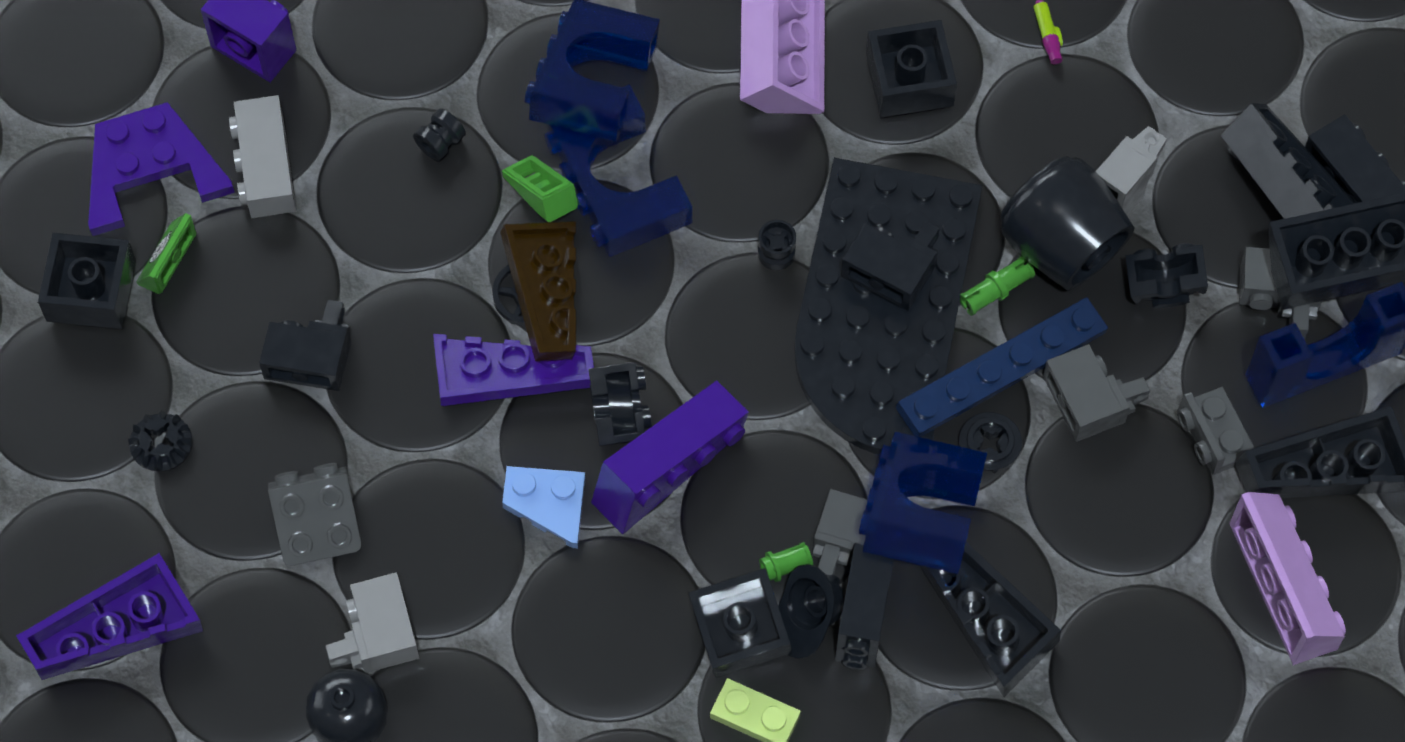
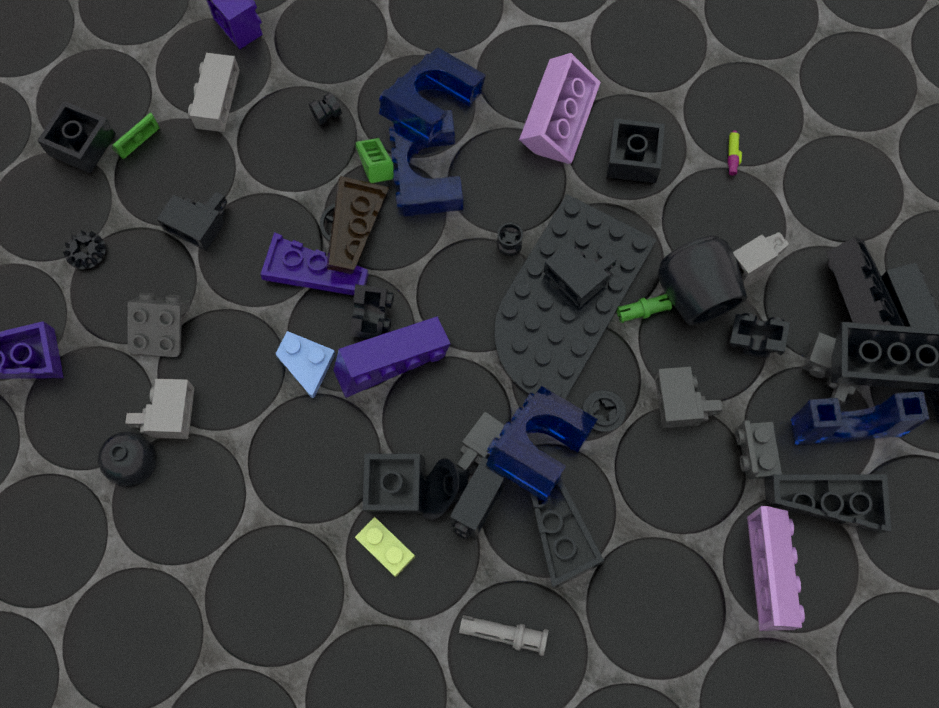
camera: 20 degrees right, 5 degrees up
(143, 150) = (144, 68): dark purple wing -> none
(785, 561) = (441, 450): bright green pin -> none
(1000, 368) = (627, 364): dark blue plate -> none

